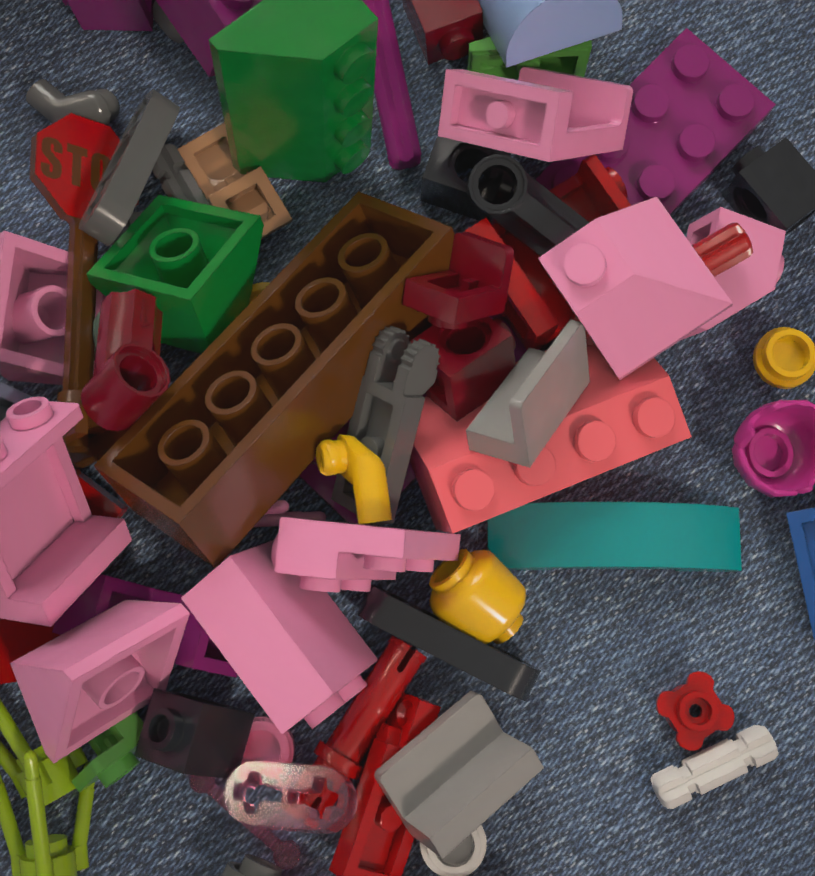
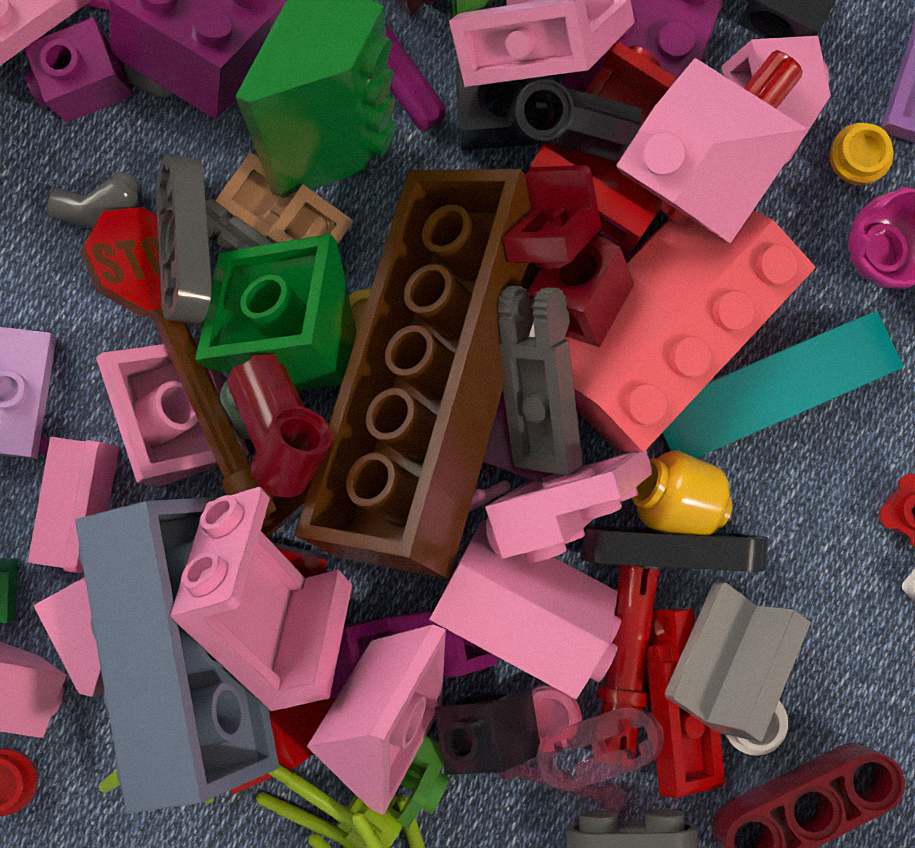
camera: 20 degrees left, 5 degrees up
(362, 470) = (540, 431): yellow arm -> none
(533, 399) = (663, 299): light grey panel -> none

